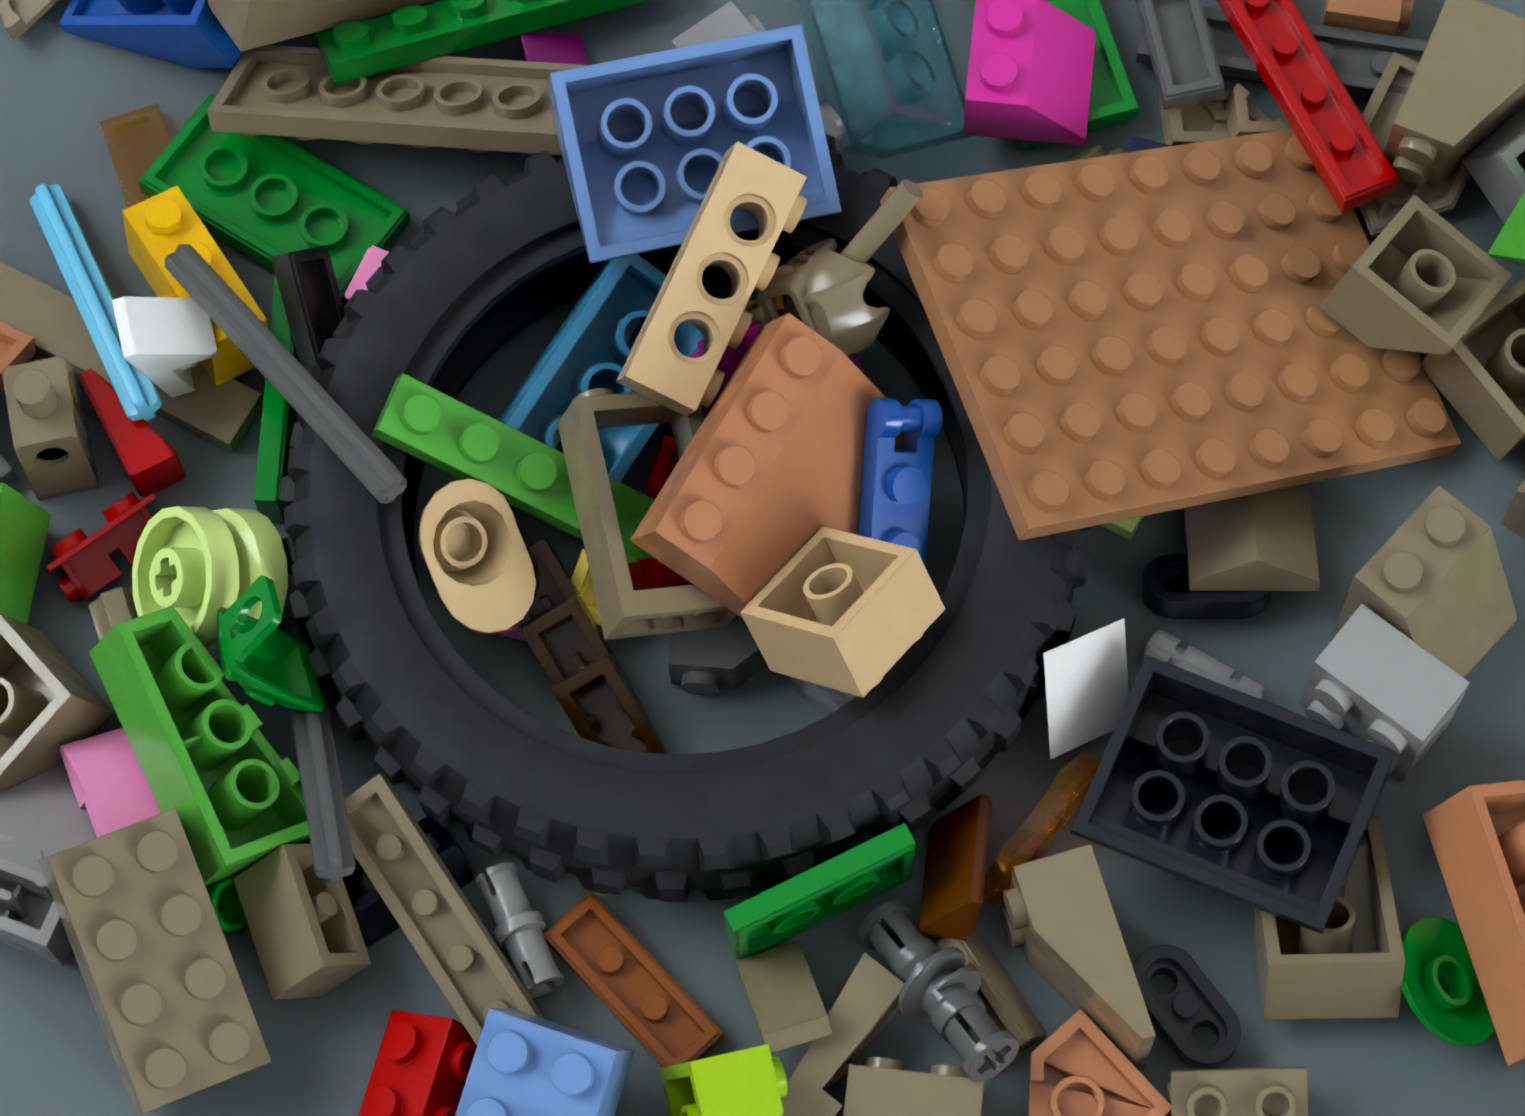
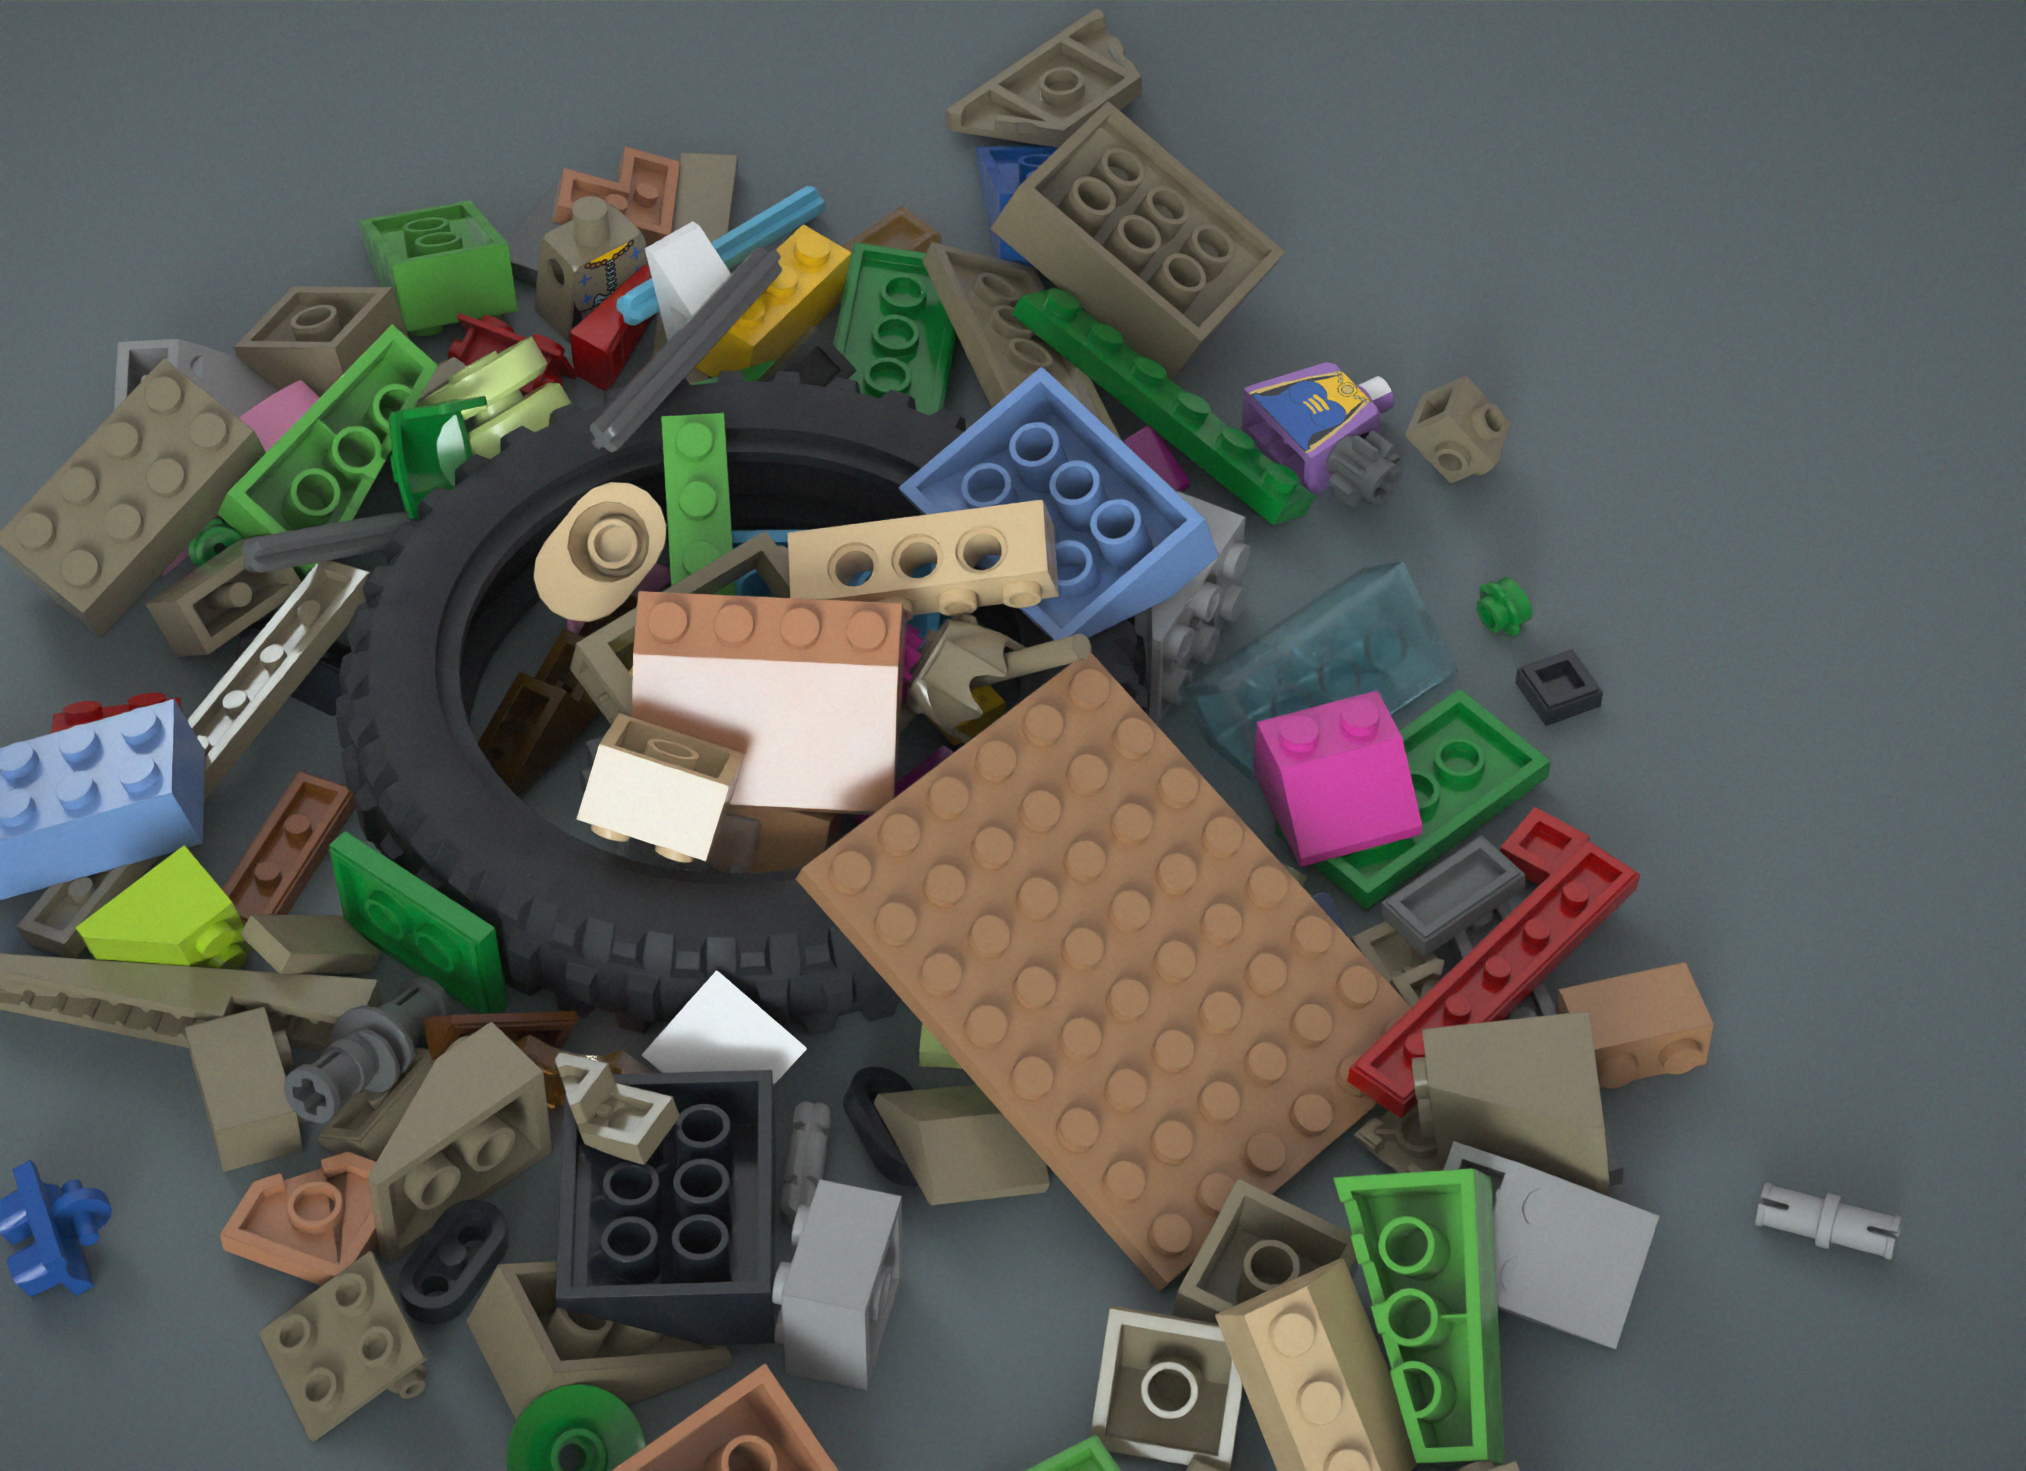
camera: 60 degrees right, 20 degrees down
(519, 929) = (291, 752): light grey pin -> none
(895, 479) = (815, 803): blue plate -> none
(1144, 805) = (614, 1115): none -> dark tan slope
(1416, 285) = (1285, 1132): dark tan slope -> none
(1438, 583) = (963, 1286): dark tan slope -> none

